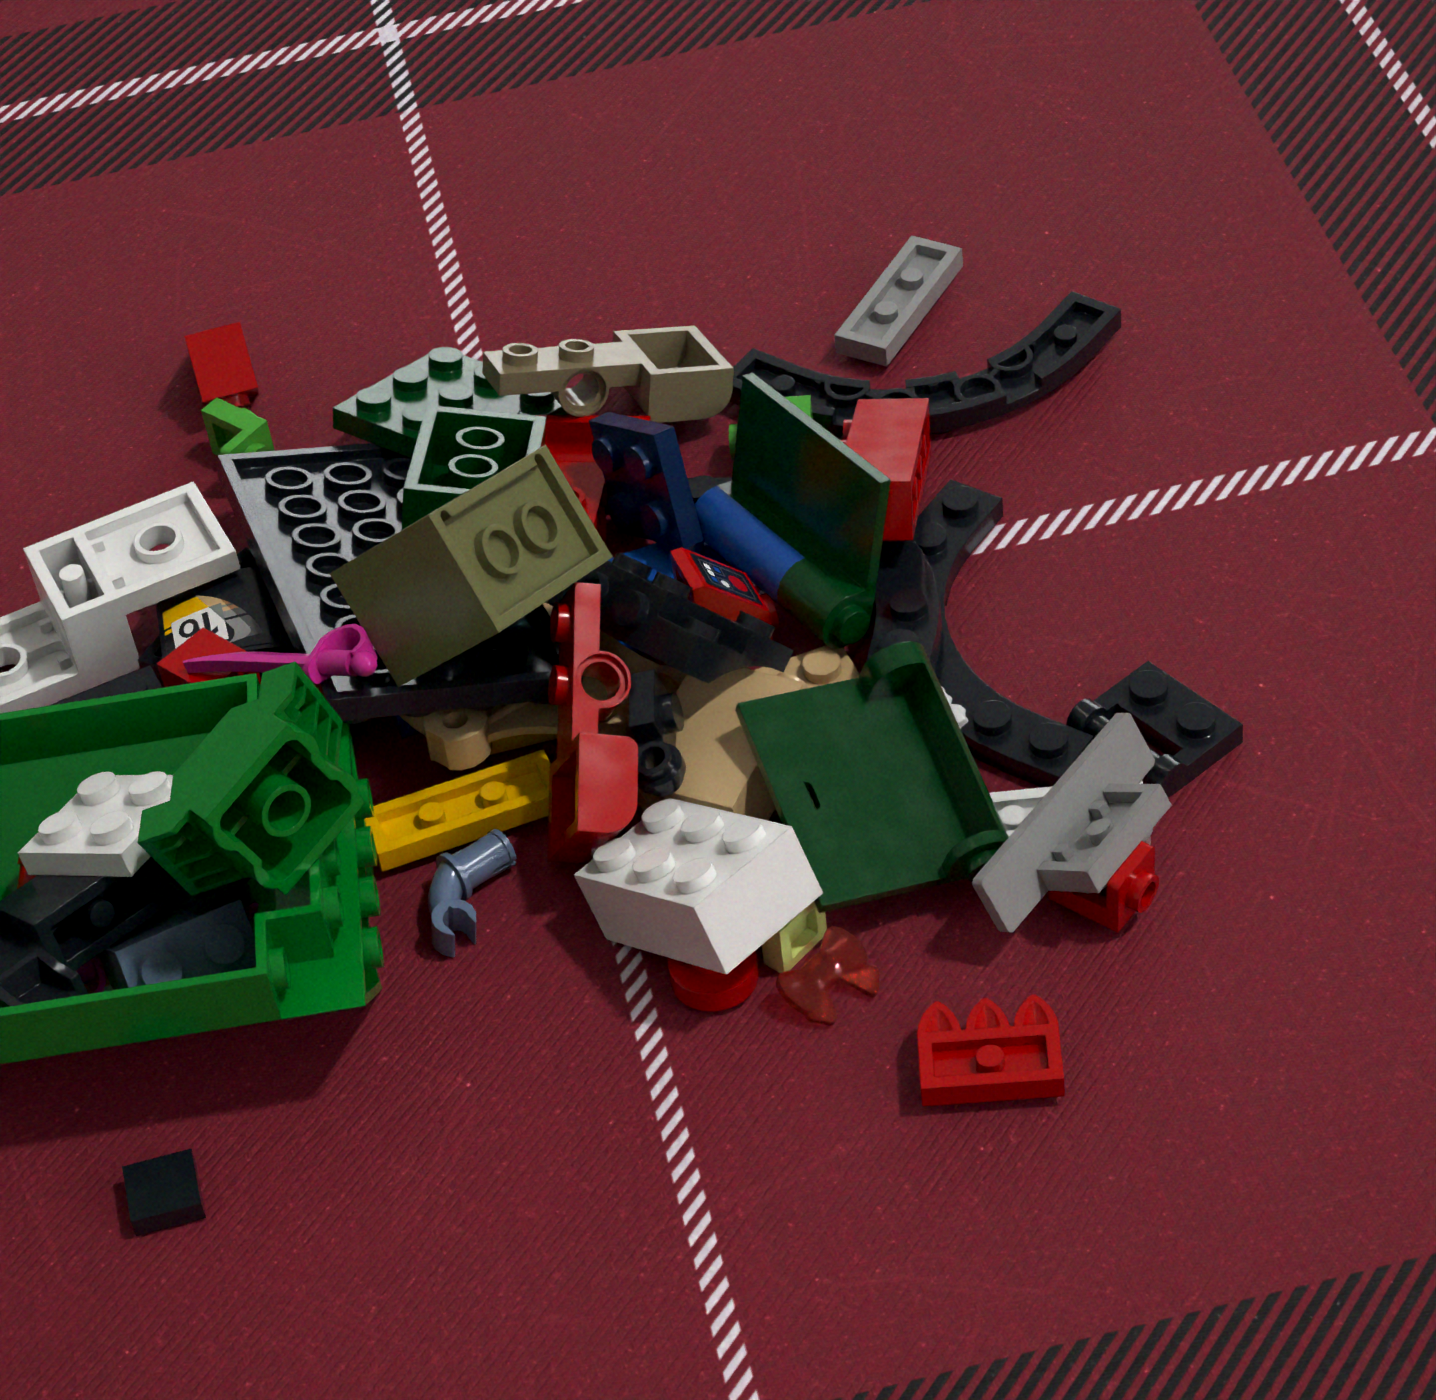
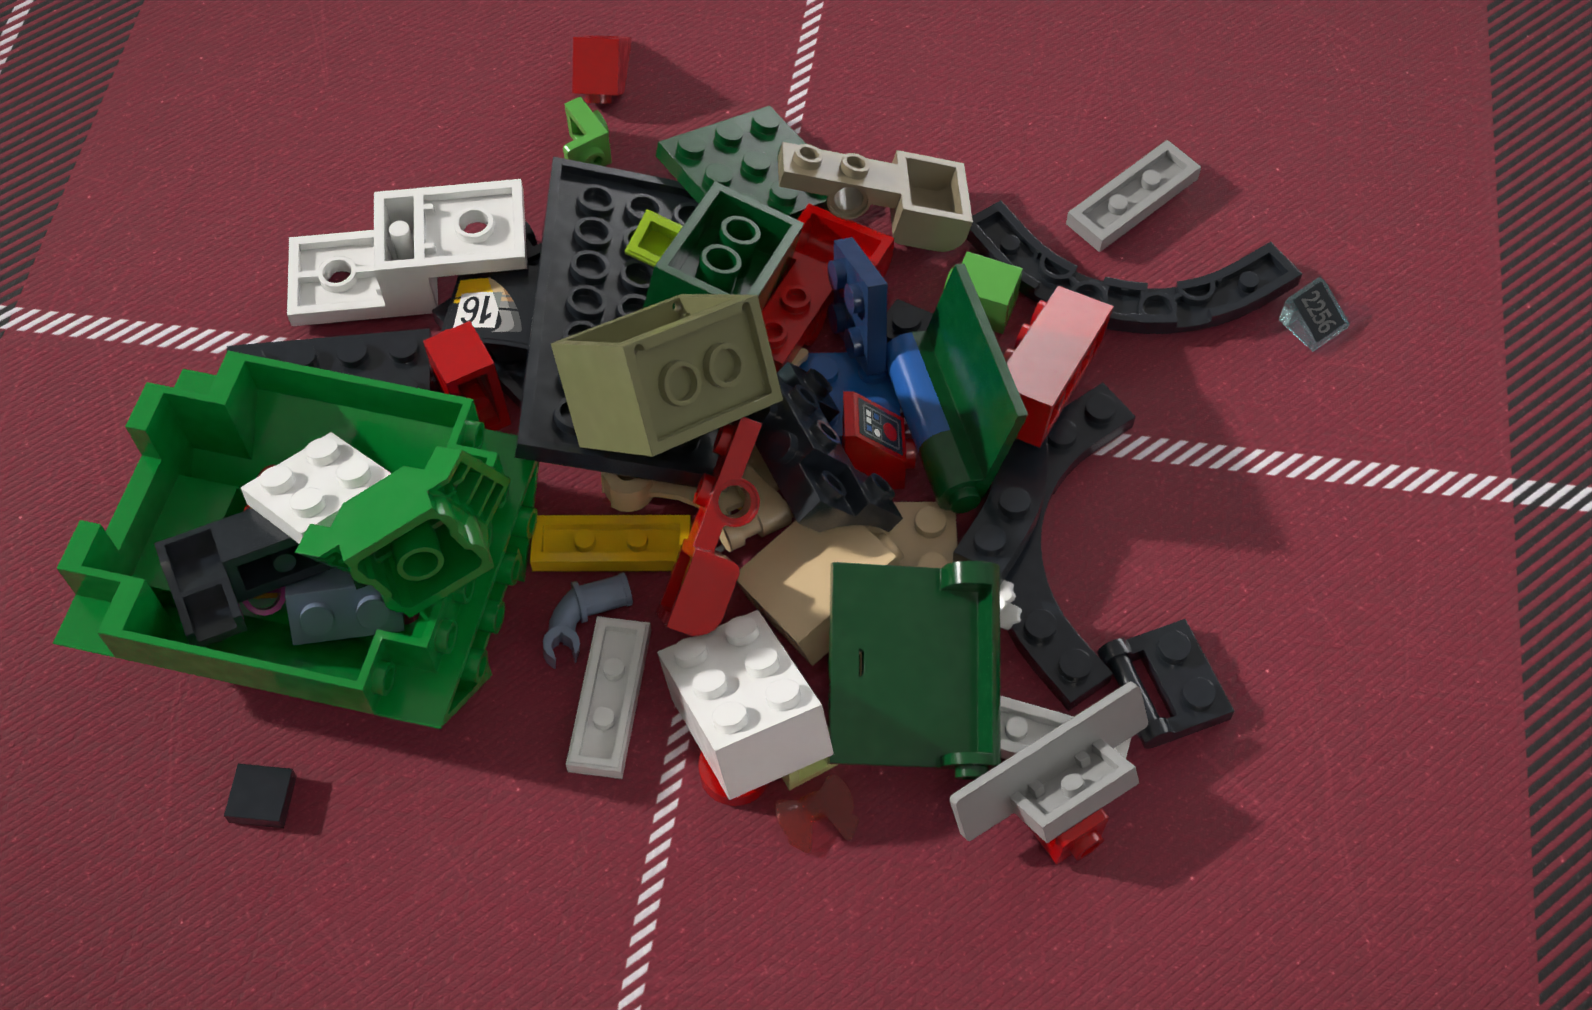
camera: 15 degrees right, 15 degrees up
(337, 653) = (541, 406): dark pink sword -> none
(378, 491) = (652, 238): none -> lime slope
(533, 958) = (609, 698): none -> white tile
(654, 723) = (766, 546): black plate -> none
(989, 1056) = (905, 944): red plate -> none
(1151, 345) = (1314, 315): none -> slope

